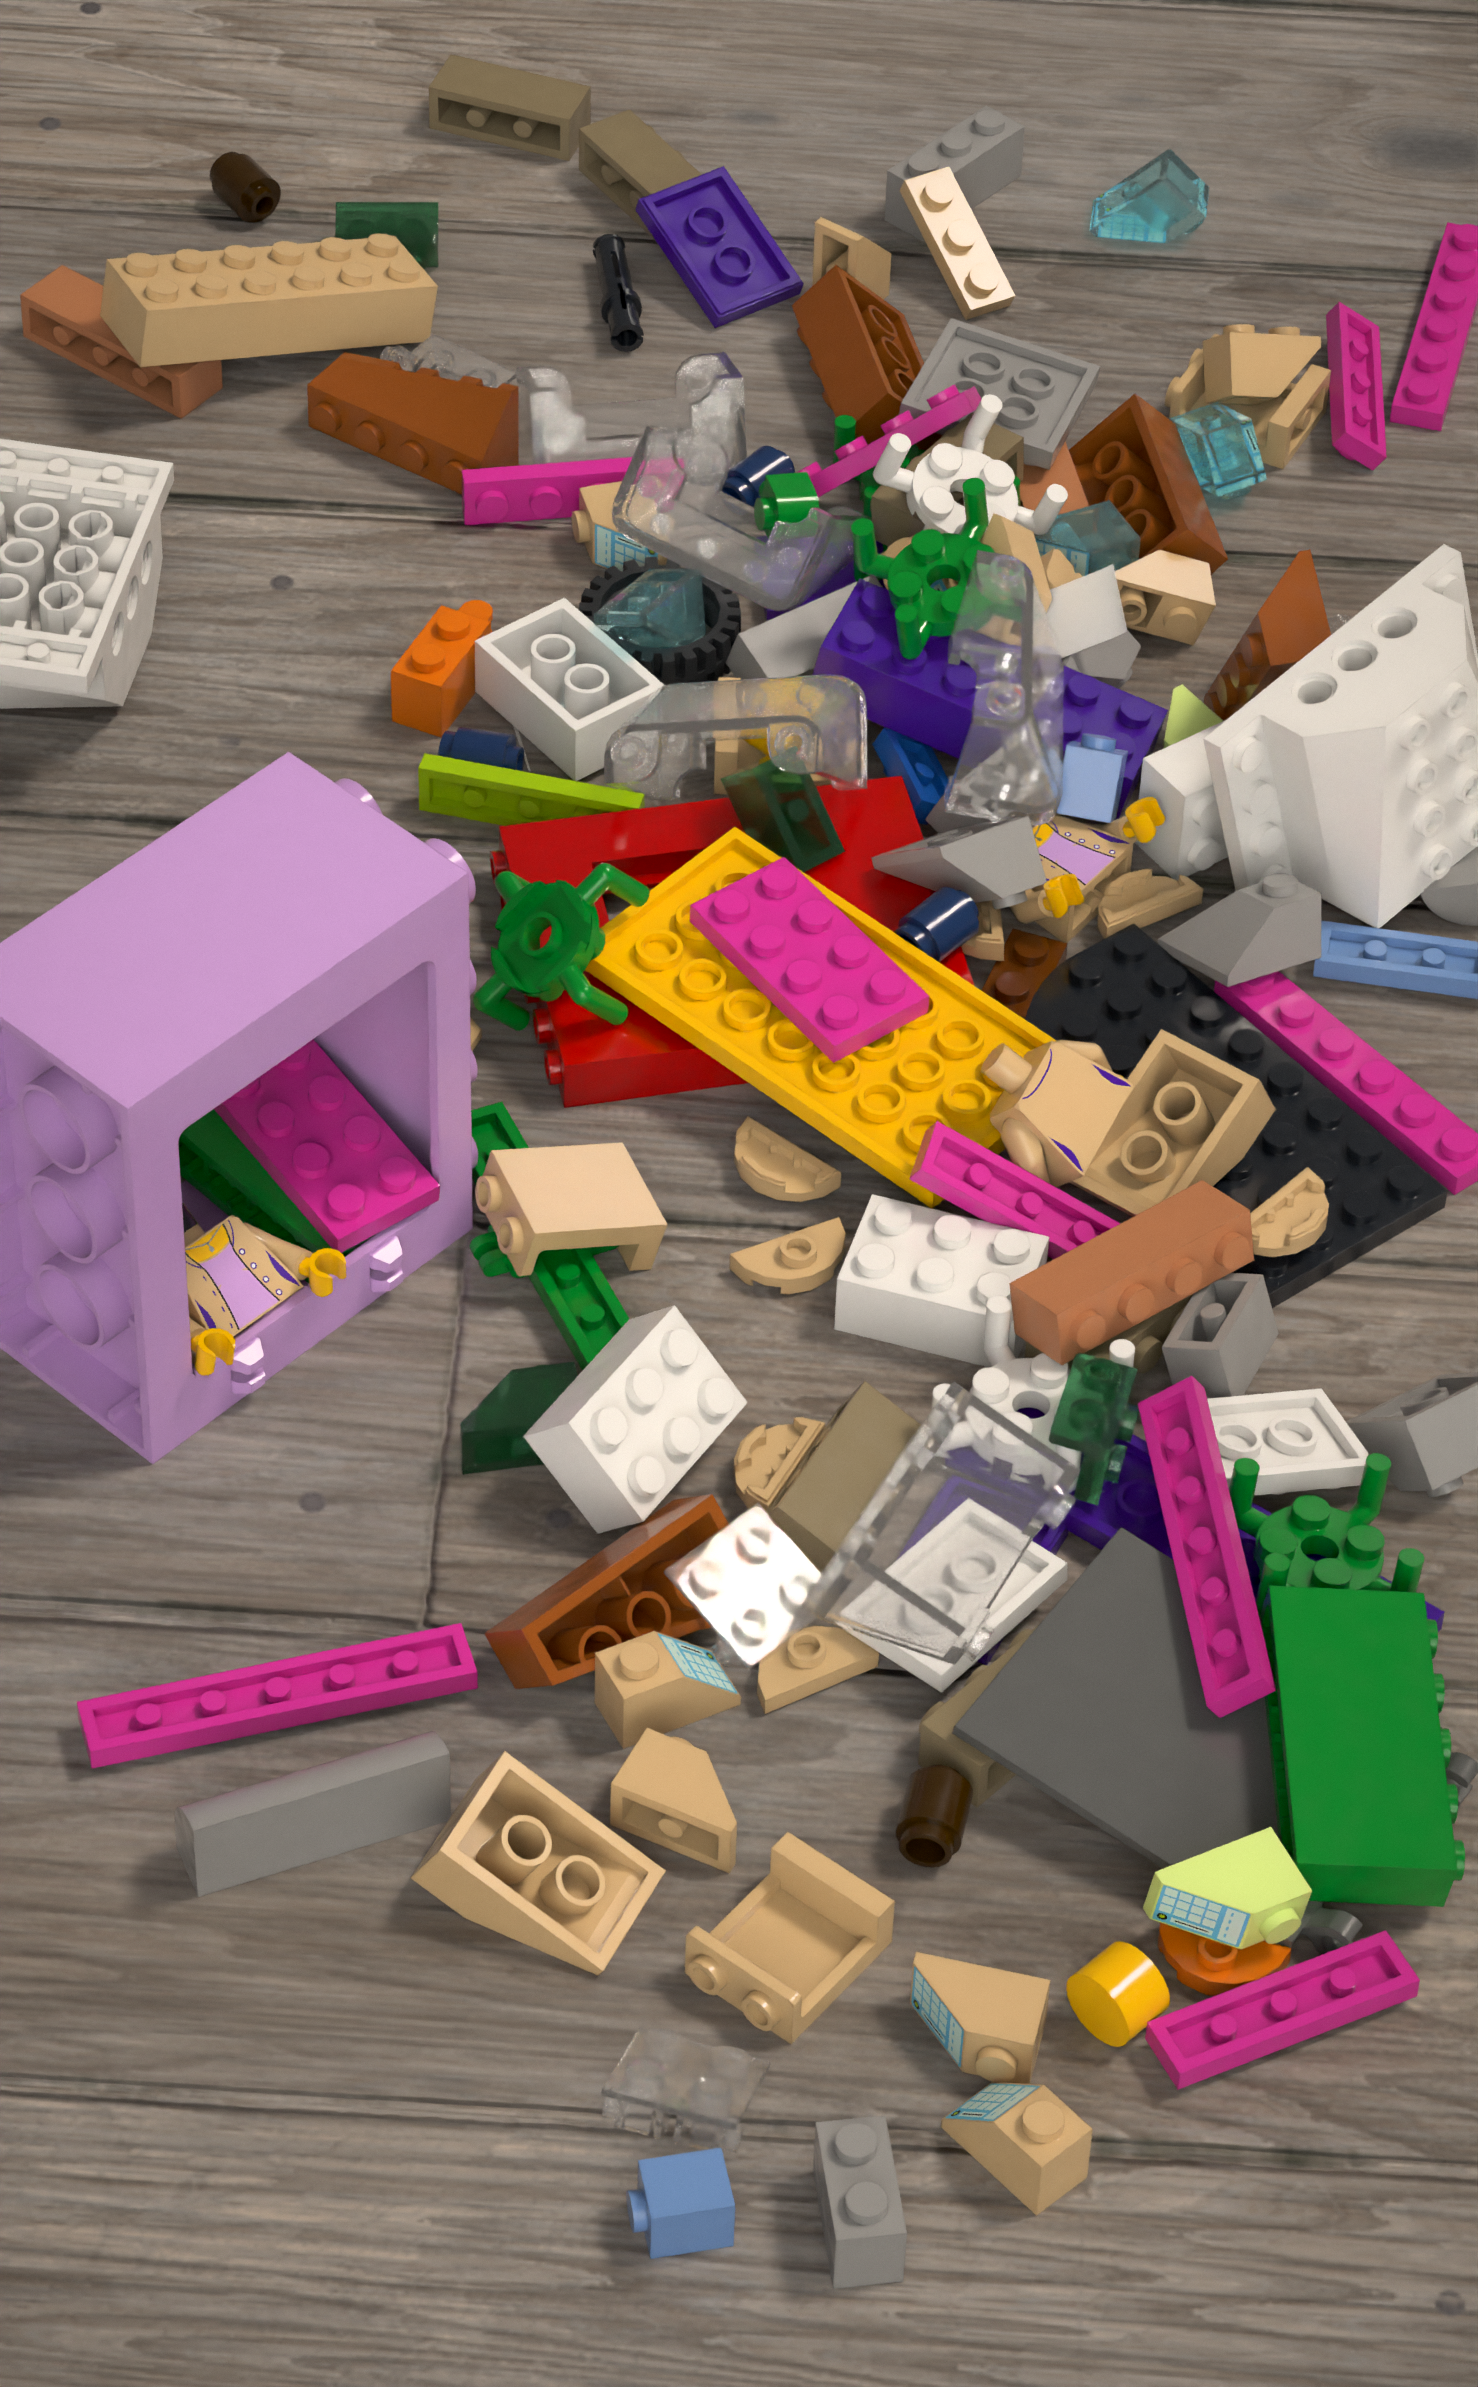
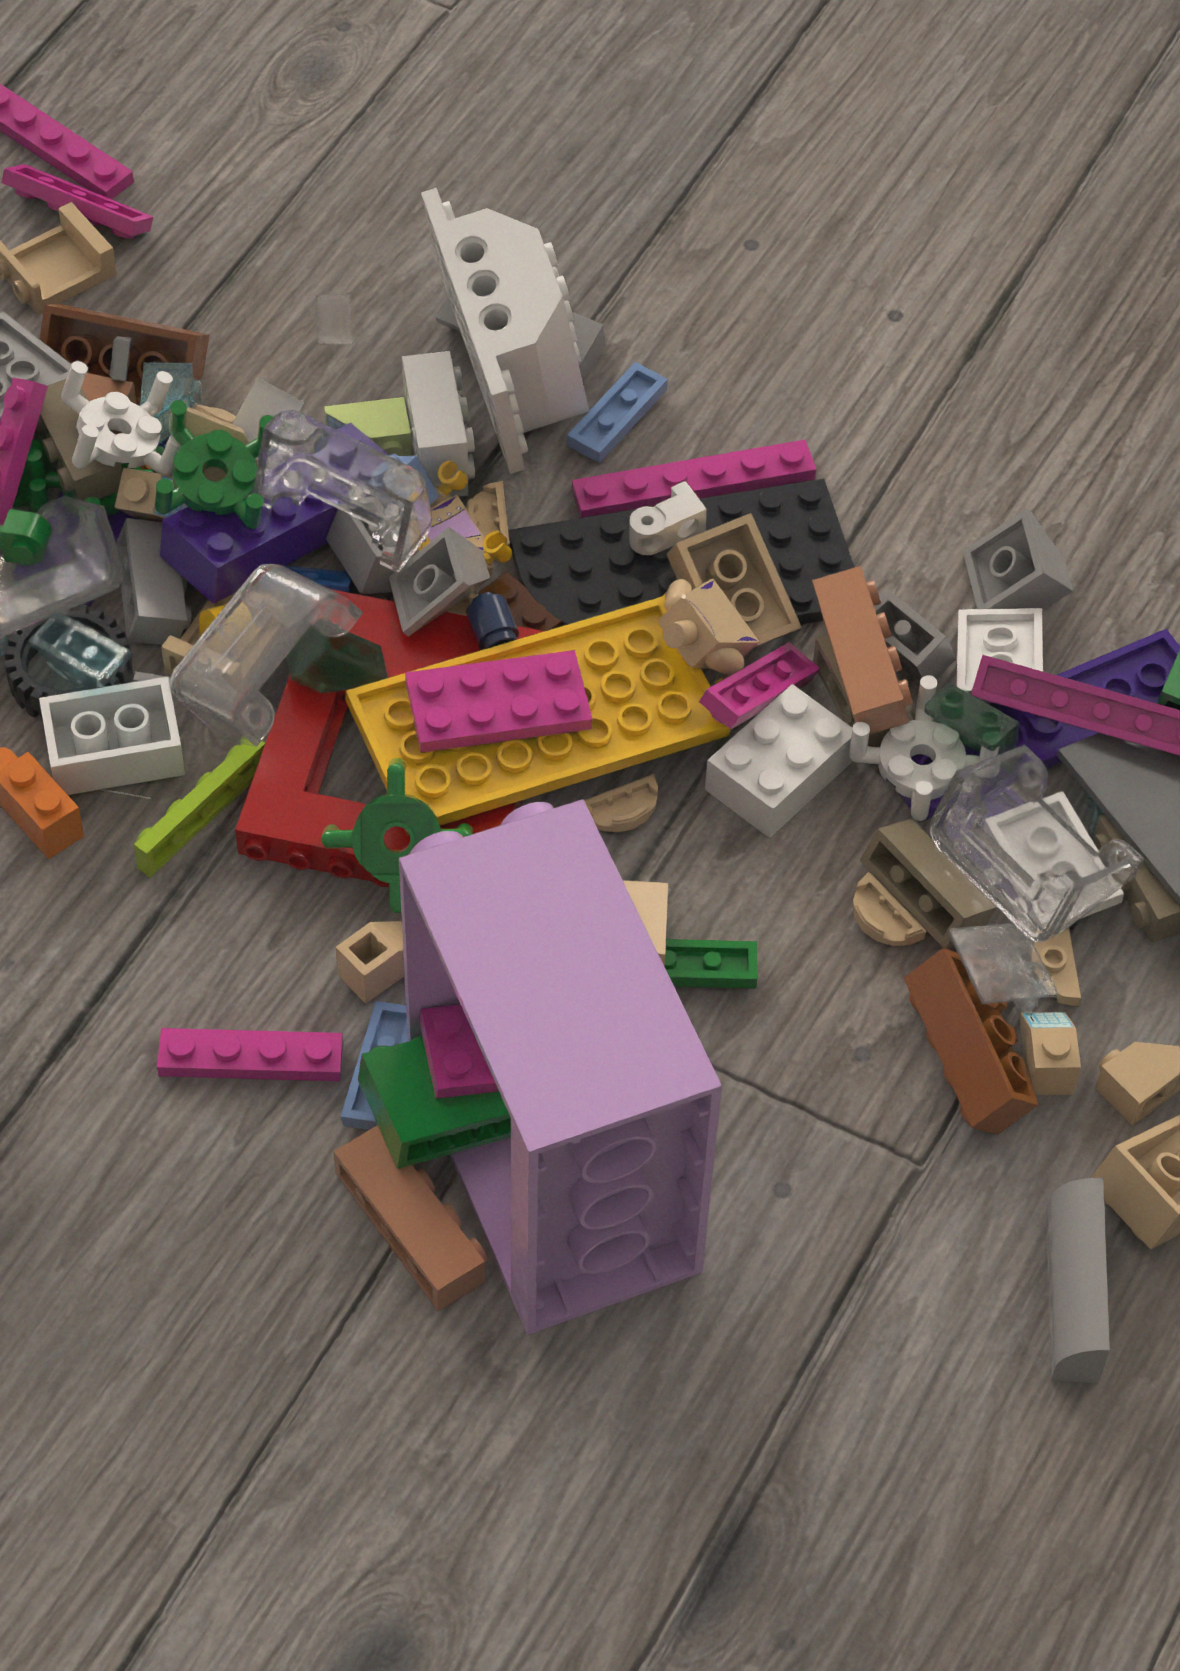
camera: 65 degrees left, 10 degrees up
(276, 1695) = (960, 1272): dark pink plate -> none
(482, 747) = (134, 815): dark blue brick -> none
(495, 1428) = (785, 1030): clear green slope -> none
(635, 1419) = (841, 967): white brick -> none
(795, 1260) = (707, 831): tan plate -> none
(1111, 481) = (120, 358): none -> light grey tile
(1167, 595) = (226, 377): tan slope -> none
(1221, 449) = (98, 287): clear light blue slope -> none
(1237, 1039) = (667, 522): none -> white leg
(1251, 932) = (565, 473): light grey slope -> none
(1254, 366) = (41, 236): tan slope -> none
(1278, 637) = (365, 337): dark orange slope -> none
(1291, 1217) = (825, 553): tan plate -> none
(1313, 1527) = (1112, 648): green plate -> none

